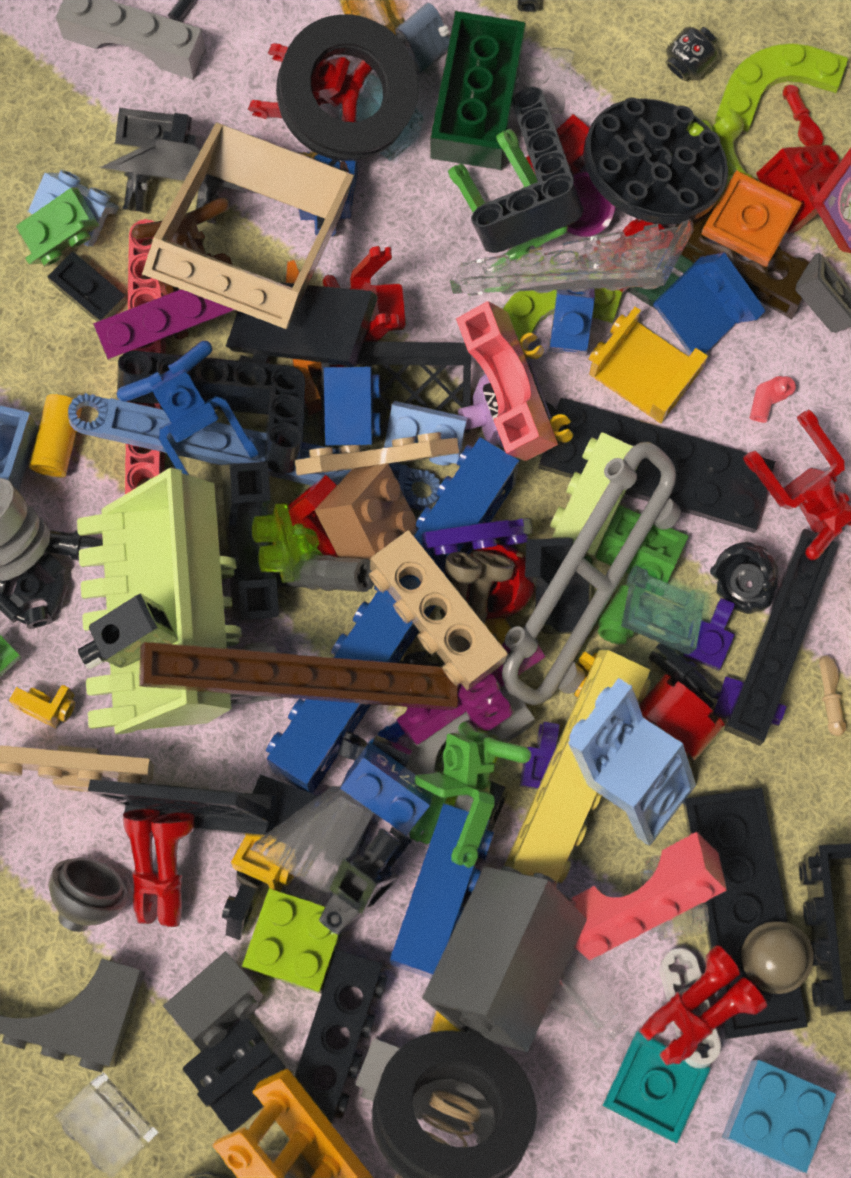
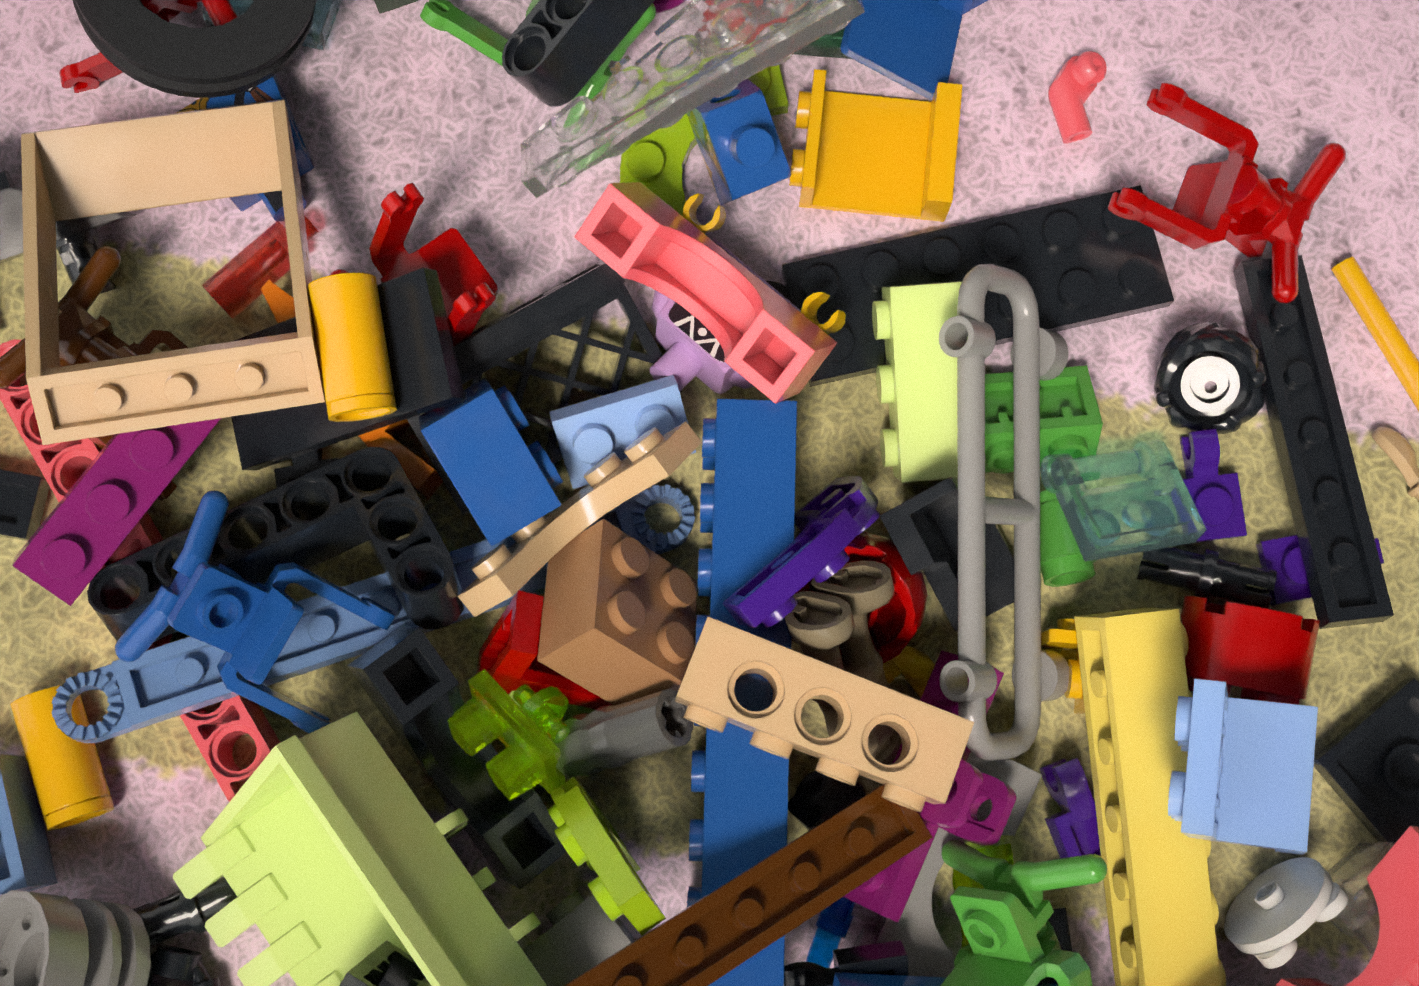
camera: 30 degrees left, 5 degrees up
(278, 253) = (244, 275): none -> clear red cylinder
(290, 624) = (593, 840): none -> lime plate
(314, 310) = (351, 347): none -> yellow pin
(600, 859) = (1282, 907): none -> white piece

